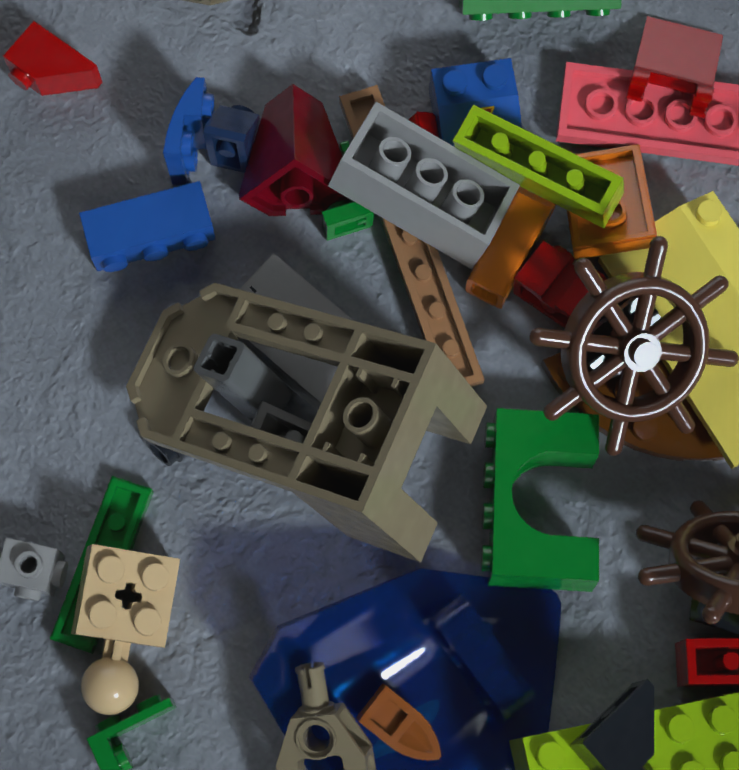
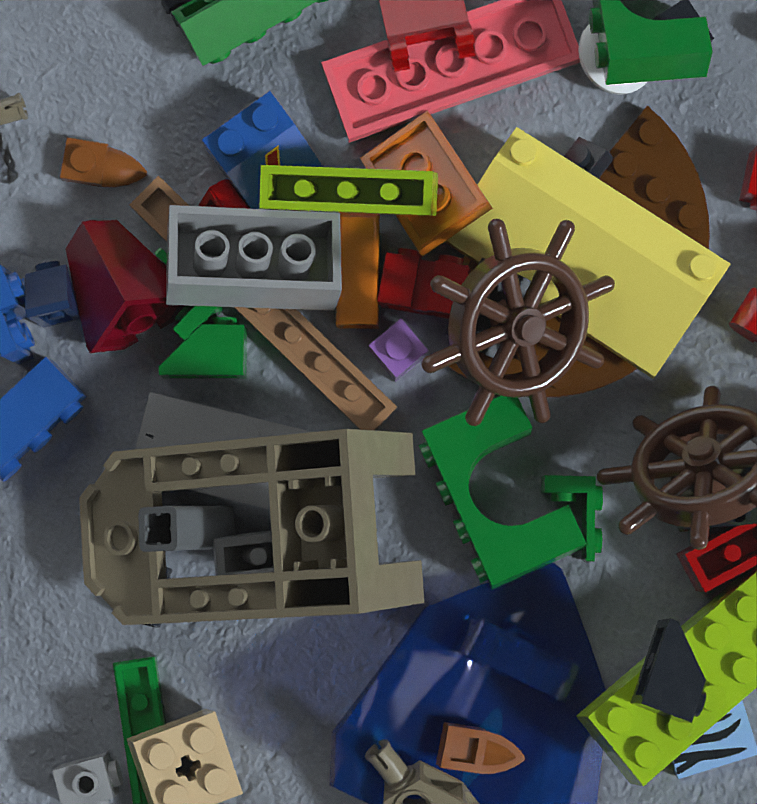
camera: 25 degrees left, 10 degrees up
(330, 55) = (99, 165): none -> dark orange plate
(341, 252) = (210, 353): none -> green slope
(509, 331) = (398, 350): none -> medium lavender brick
(612, 531) = (565, 490): none -> green bracket

